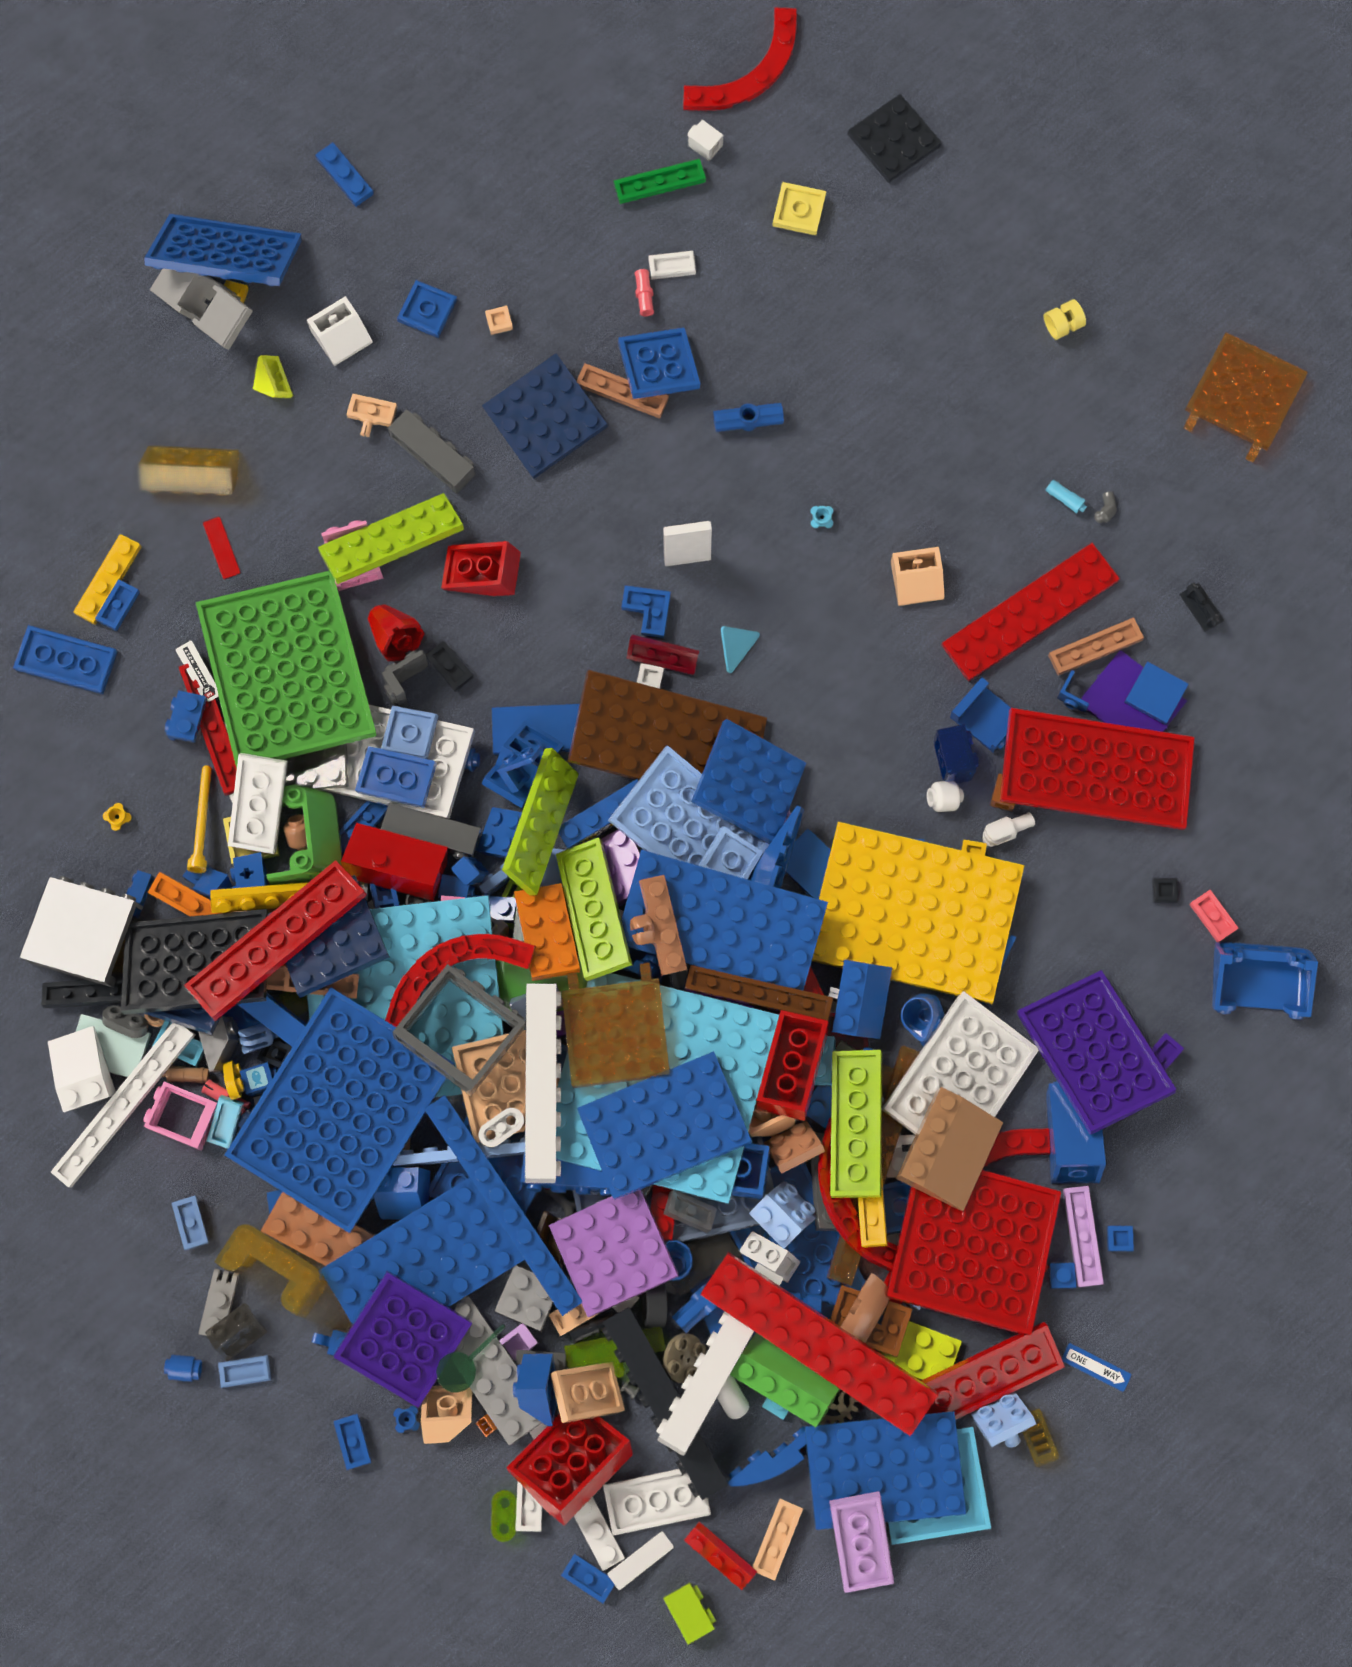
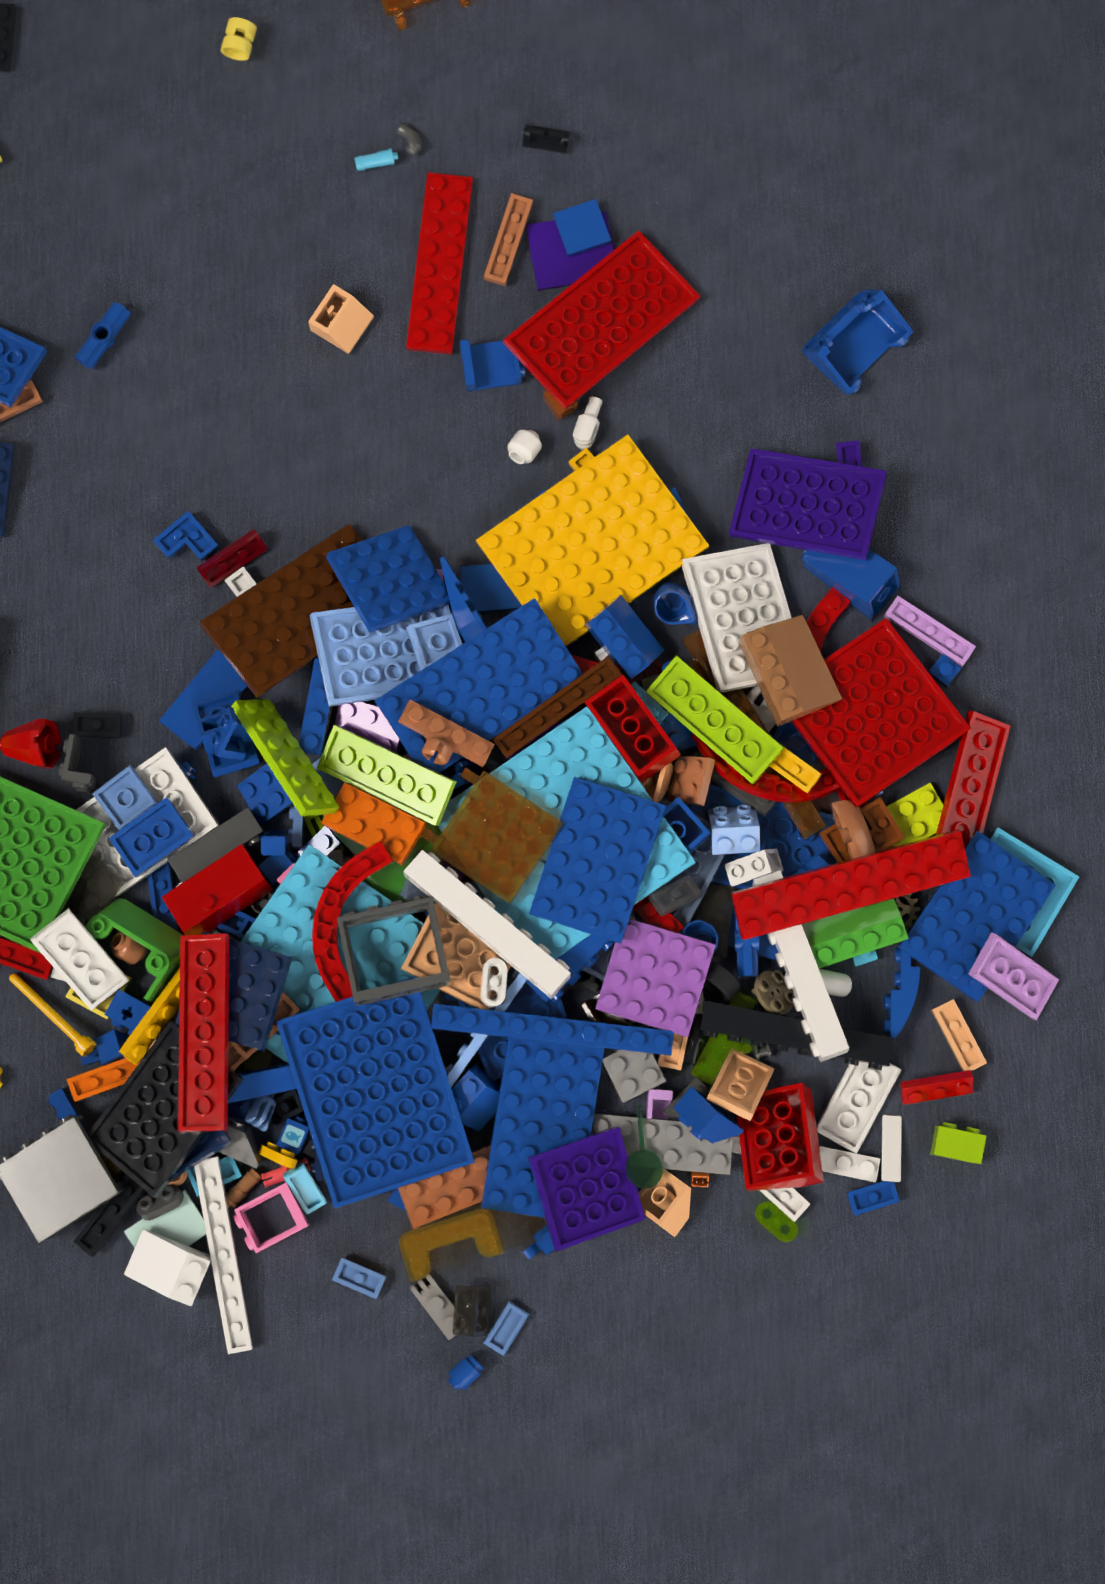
camera: 55 degrees left, 5 degrees up
(352, 1441) = (627, 1289): blue plate -> none
(400, 1415) = (651, 1235): blue plate -> none
(482, 568) = (42, 636): red slope -> none
(687, 543) = (165, 464): white tile -> none
(736, 645) = (273, 497): medium azure piece -> none
(826, 511) = (229, 342): medium azure plate -> none
(955, 754) = (501, 411): clear blue brick -> none
(1004, 1420) = (1012, 800): light blue plate -> none
(1049, 1457) = (1059, 802): clear yellow slope -> none
(1071, 701) = (530, 294): blue bracket -> none
(1096, 1367) = (1028, 703): sticker -> none
(1120, 1238) = (953, 606): blue plate -> none
(1164, 890) = (731, 352): black tile -> none
(1213, 916) = (780, 334): coral plate -> none

